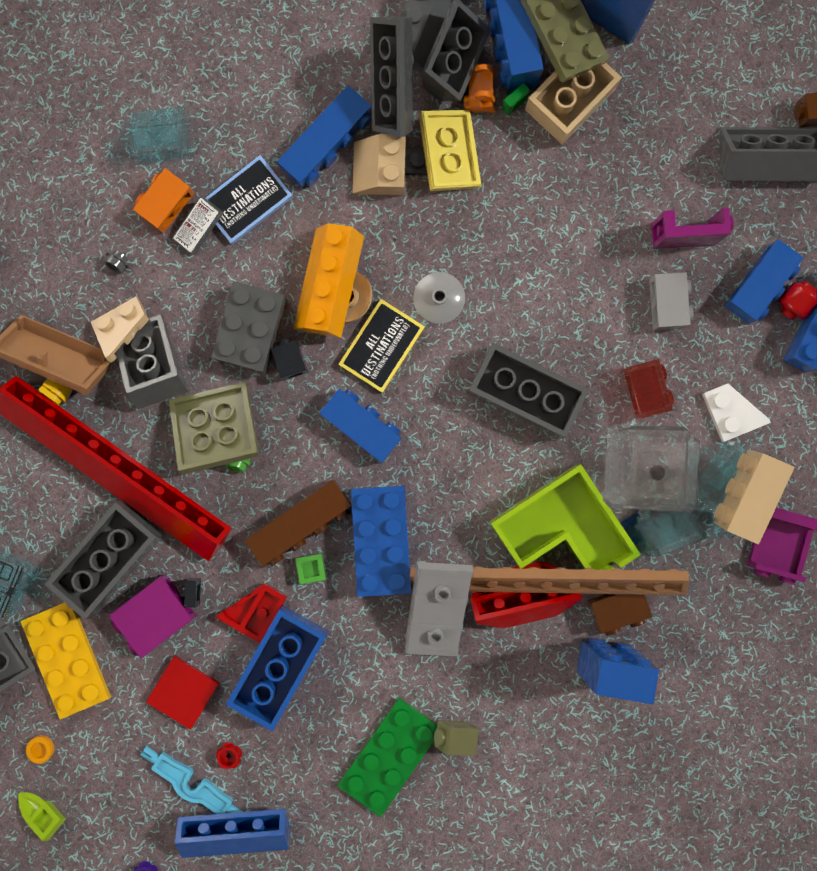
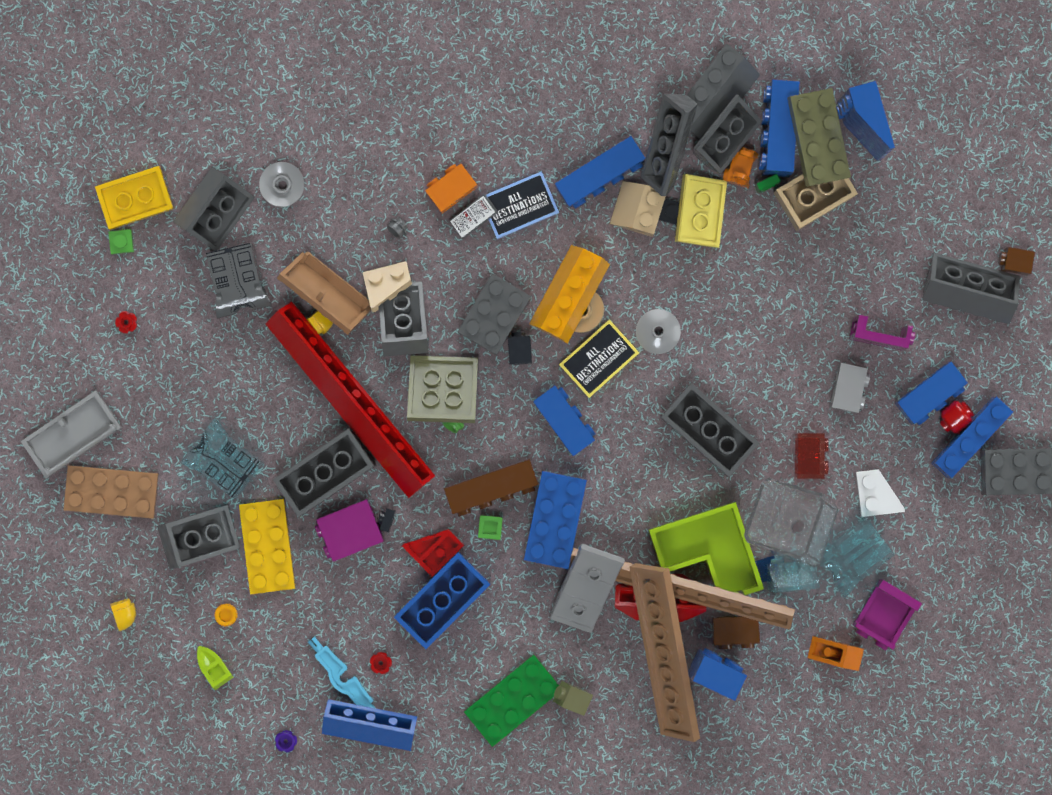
camera: 15 degrees right, 0 degrees up
(159, 134) = (462, 130): clear light blue slope -> none
(182, 692) = (356, 600): red tile -> none
(547, 658) = (664, 651): none -> medium nougat plate
(739, 604) = (835, 653): none -> orange slope
(752, 495) = (864, 564): tan brick -> none

